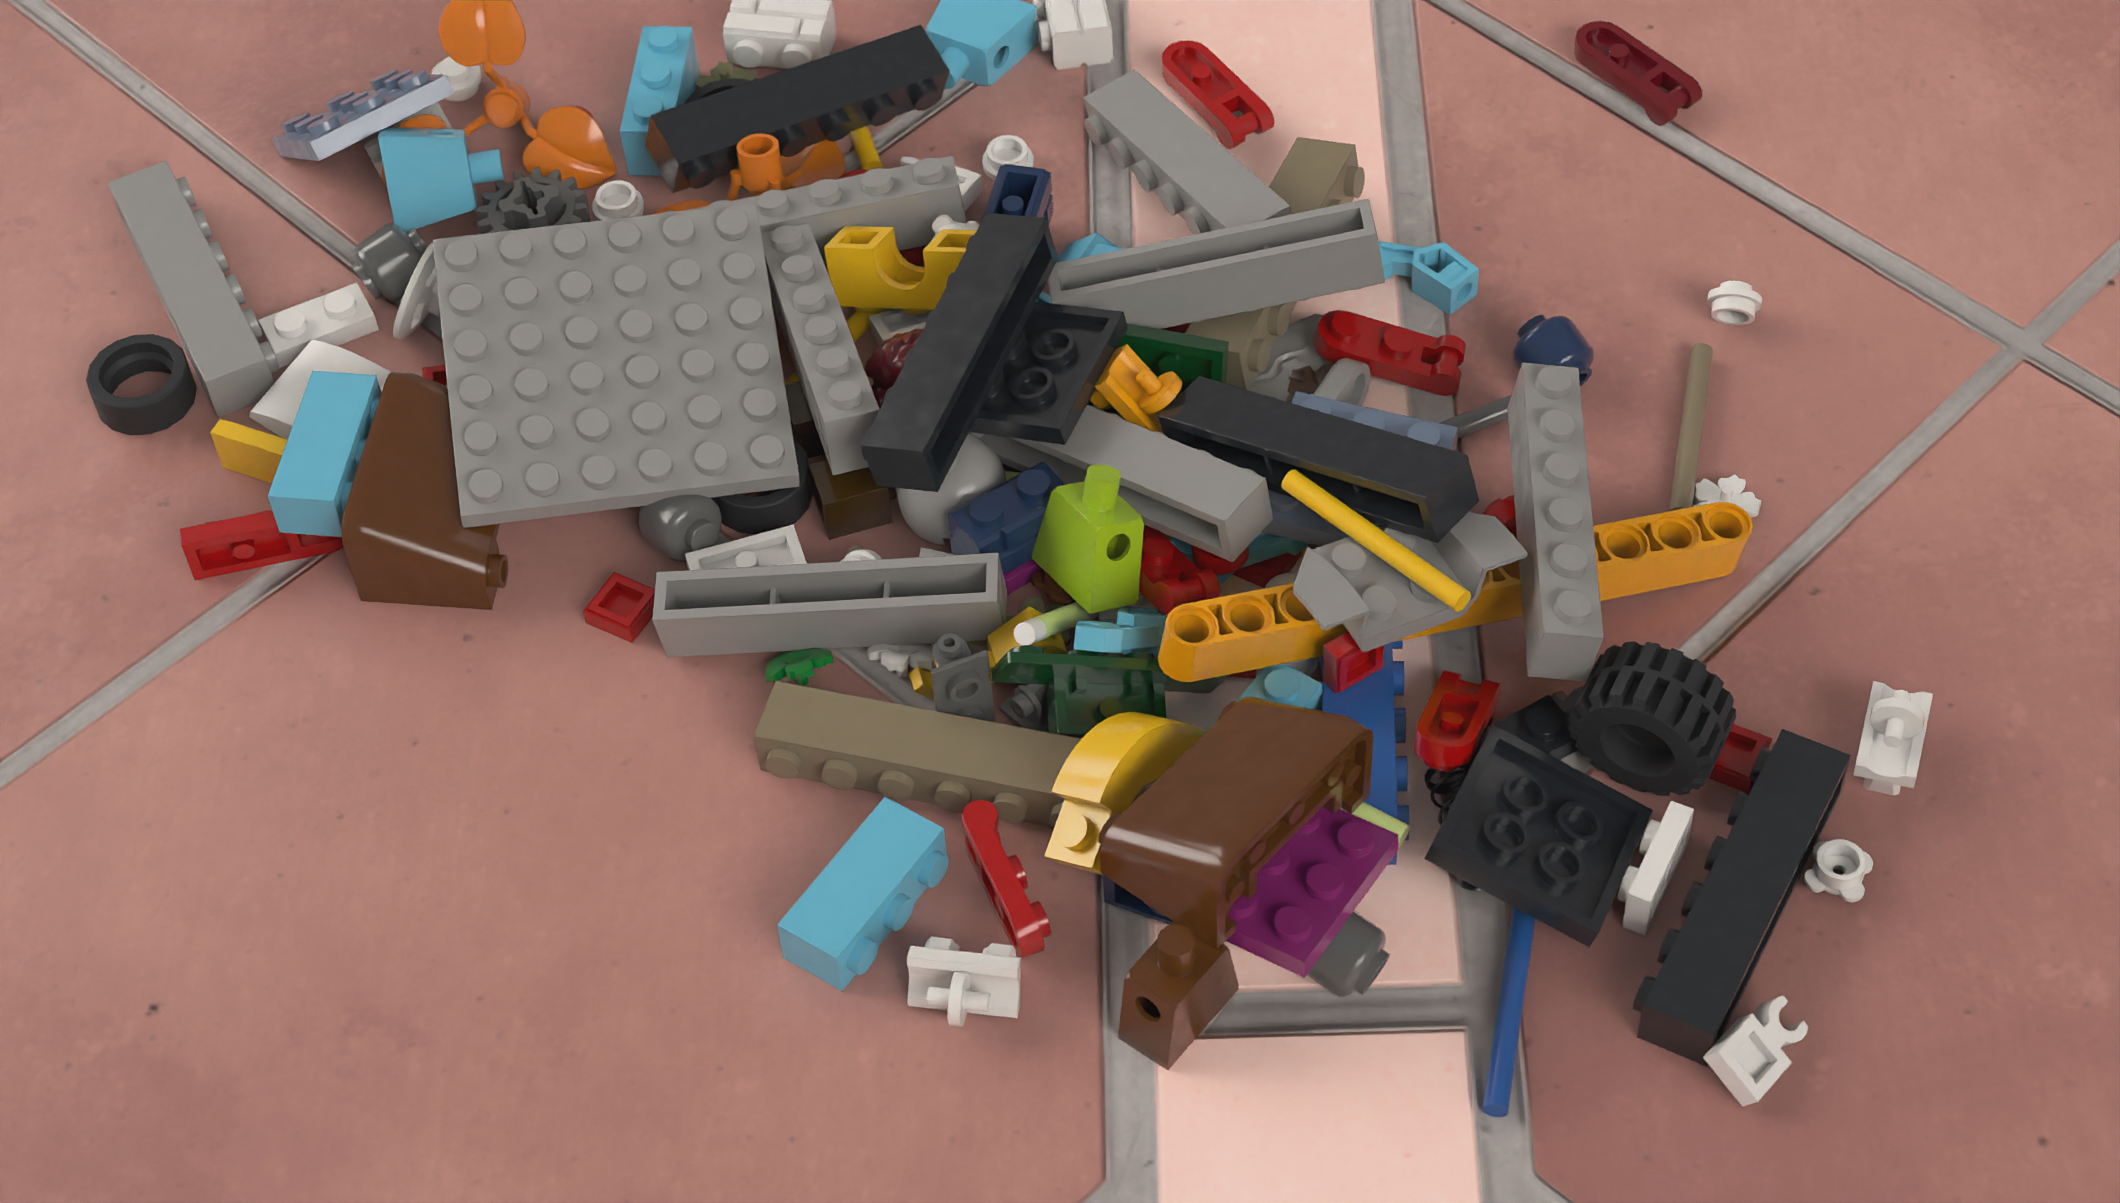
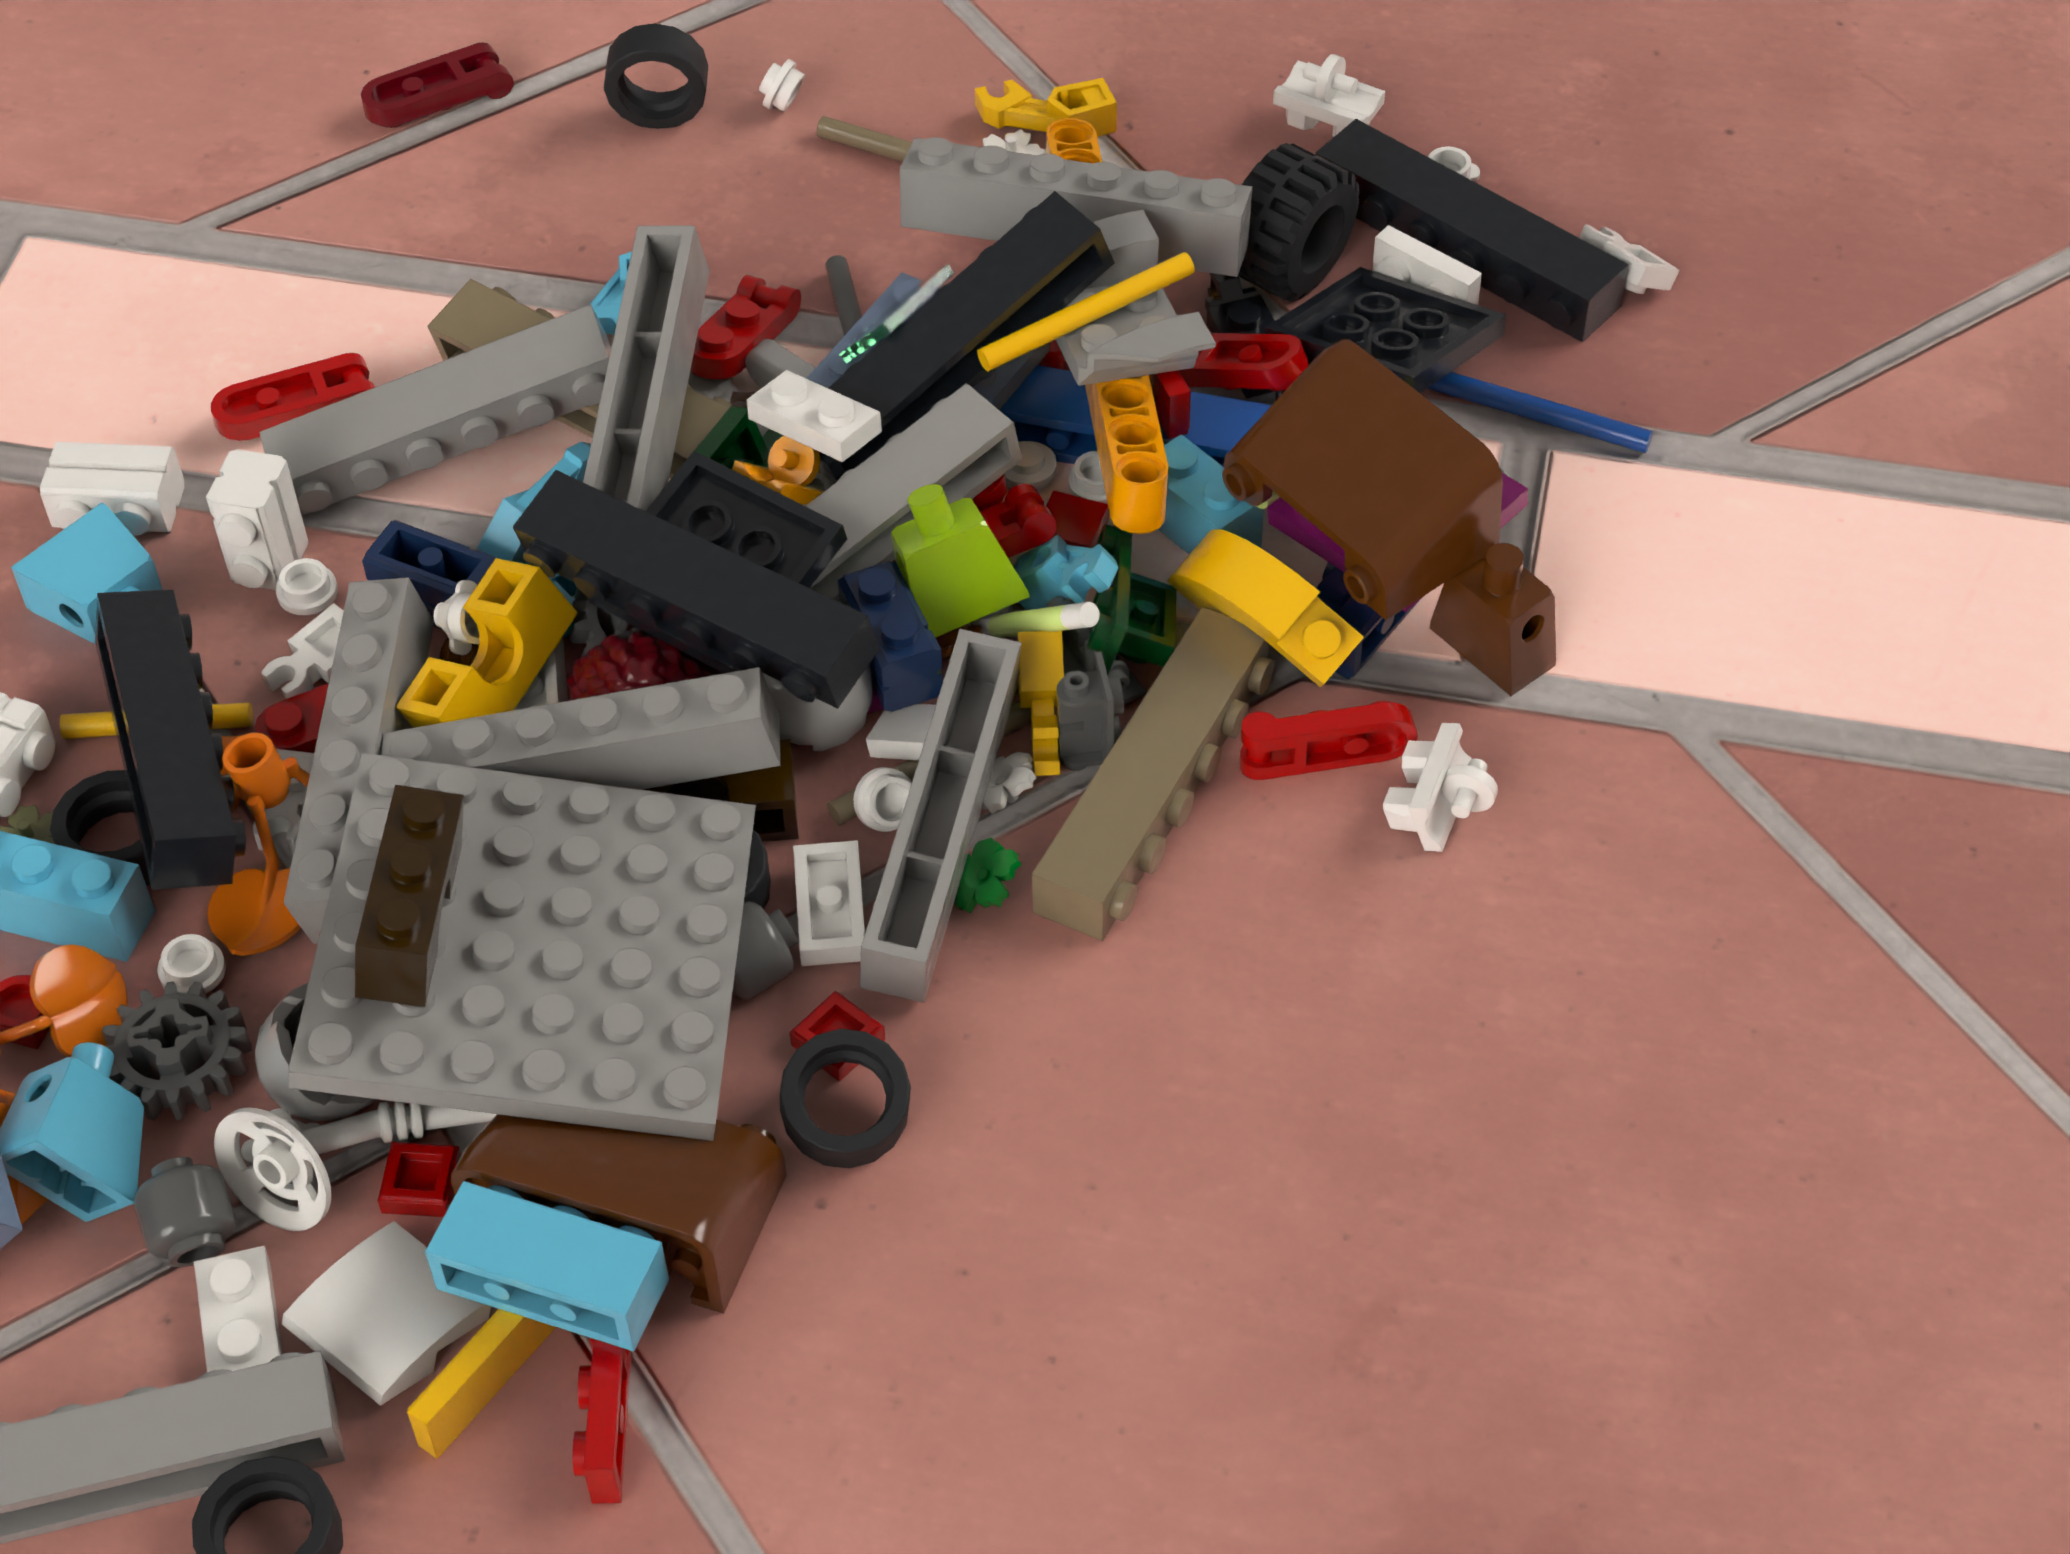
camera: 80 degrees left, 0 degrees up
(522, 586) = (847, 1047): none -> black tyre
(549, 246) = (406, 896): none -> dark brown arch
(864, 894) = (1313, 853): medium azure brick -> none
(1040, 96) = (256, 517): none -> white brick
(1190, 381) = (814, 415): none -> white plate
(1349, 413) = (897, 313): none -> clear green piece
(1554, 343) = (798, 215): dark blue head -> none
(1685, 203) = (662, 45): none -> black tyre
(1817, 543) = (1081, 100): none -> yellow piece

